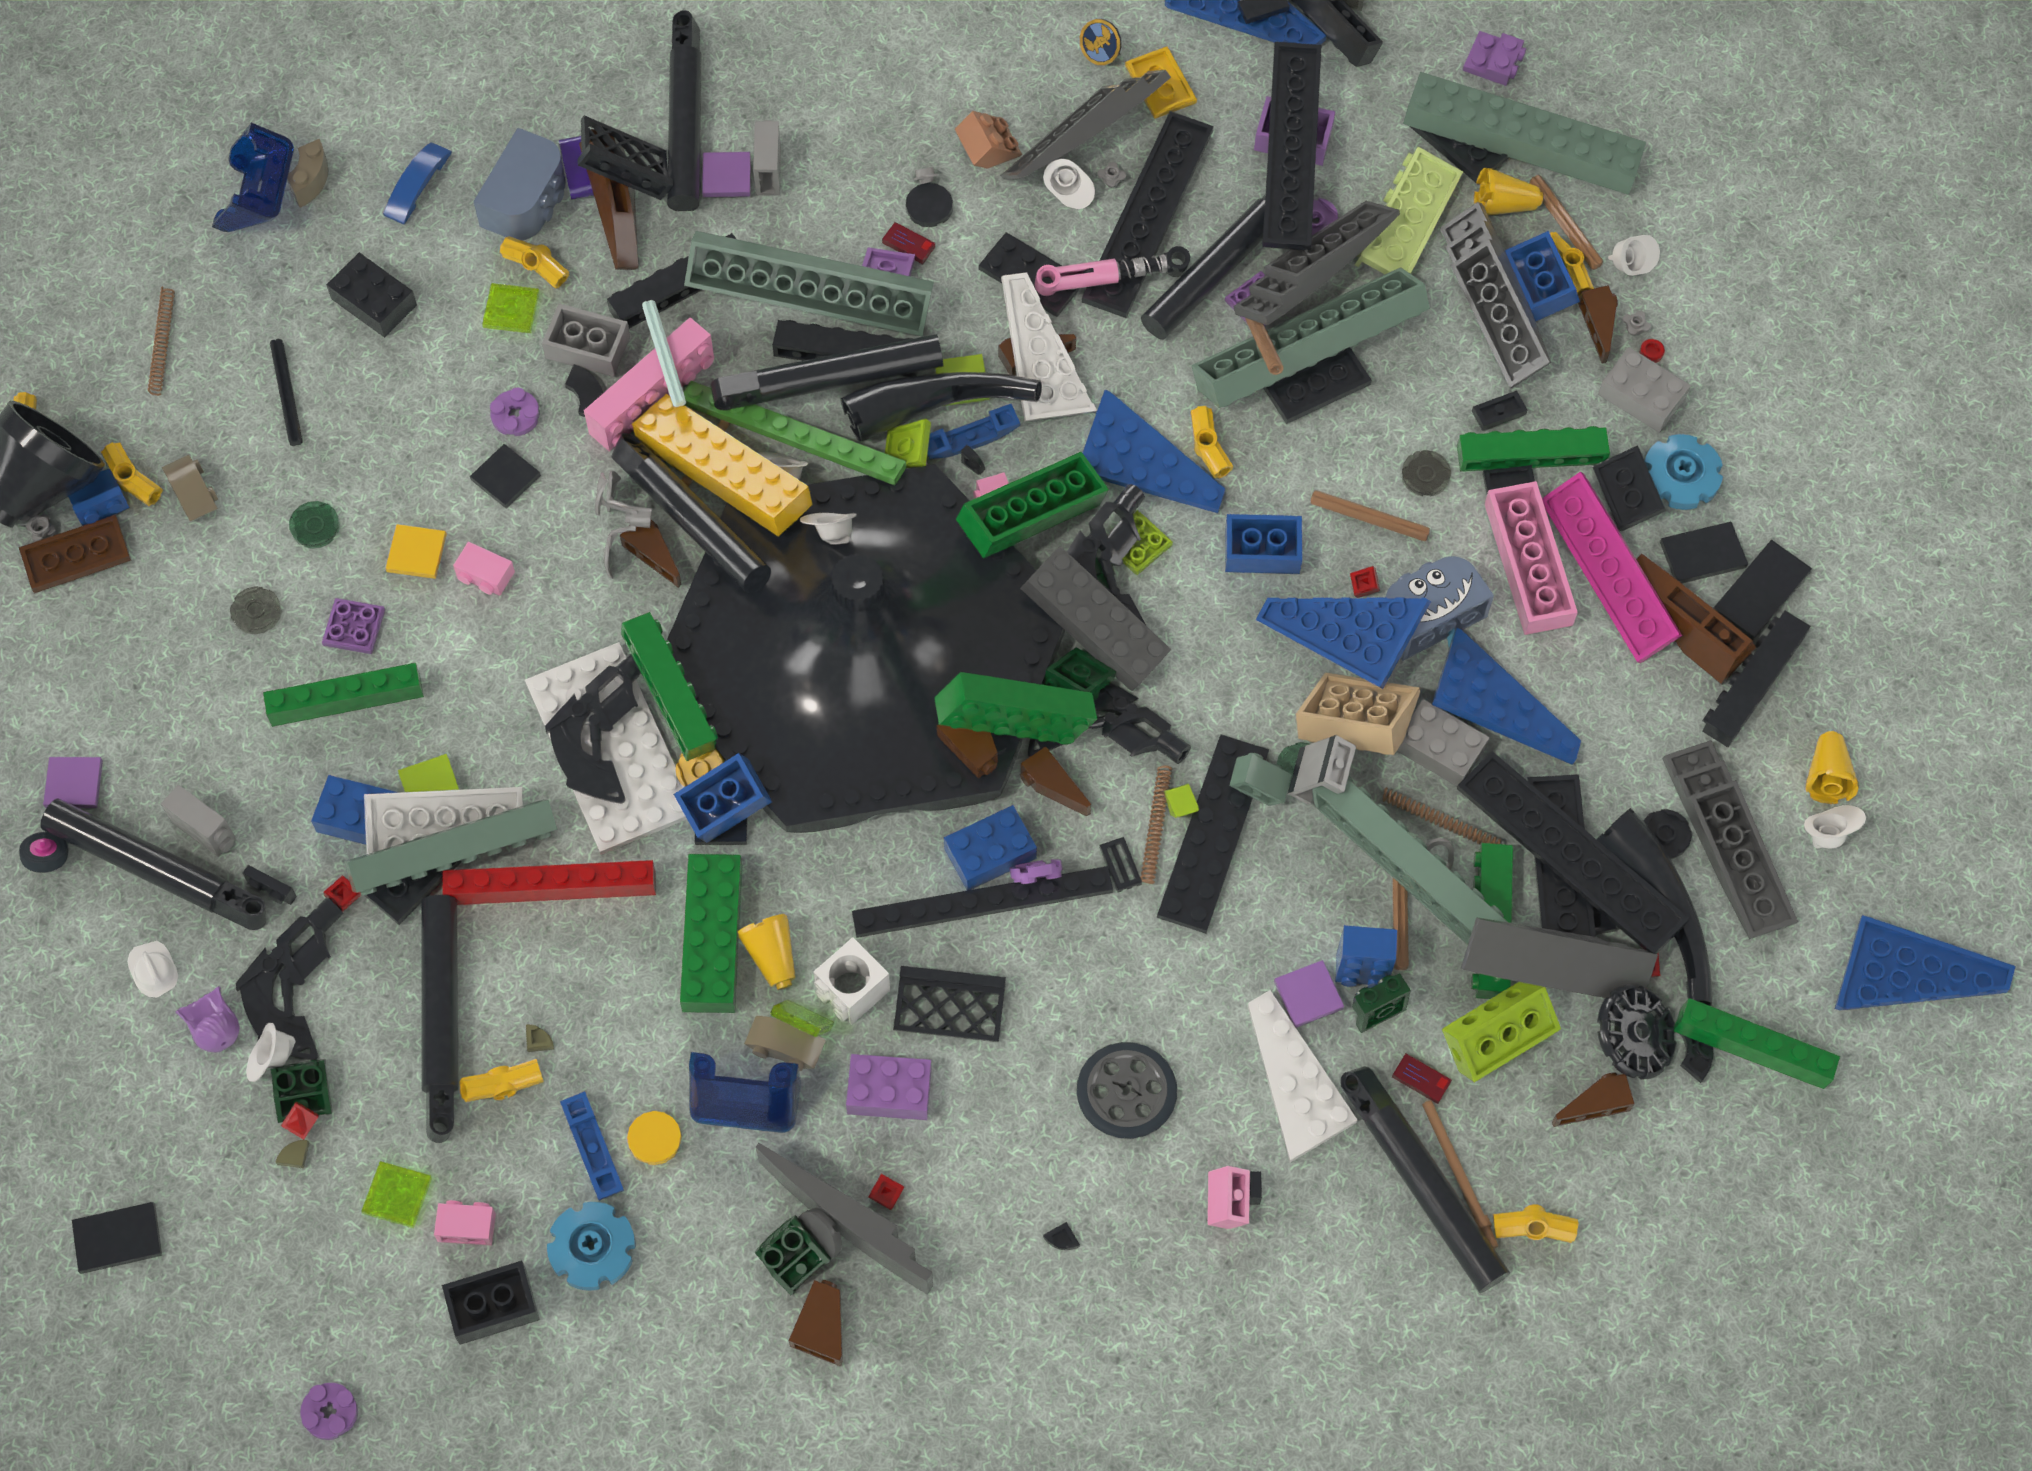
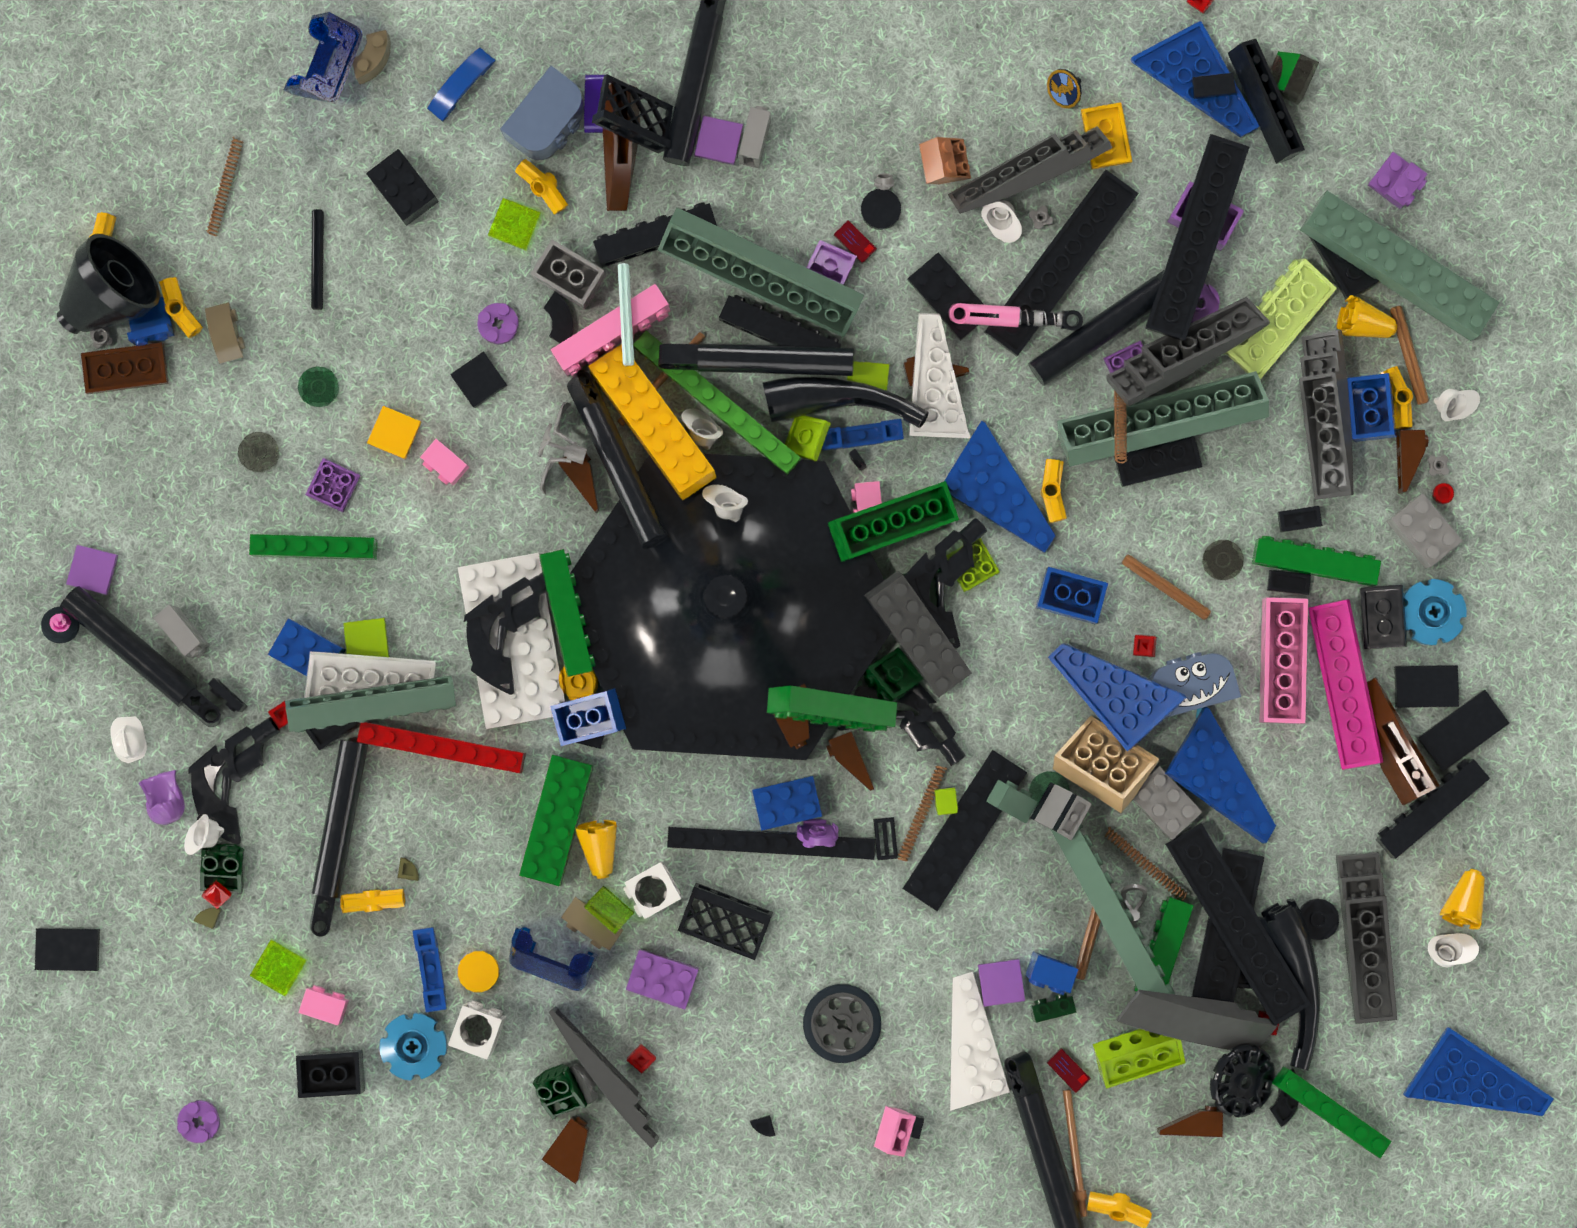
camera: 20 degrees right, 20 degrees up
(677, 1222) = (460, 1038): none -> white brick

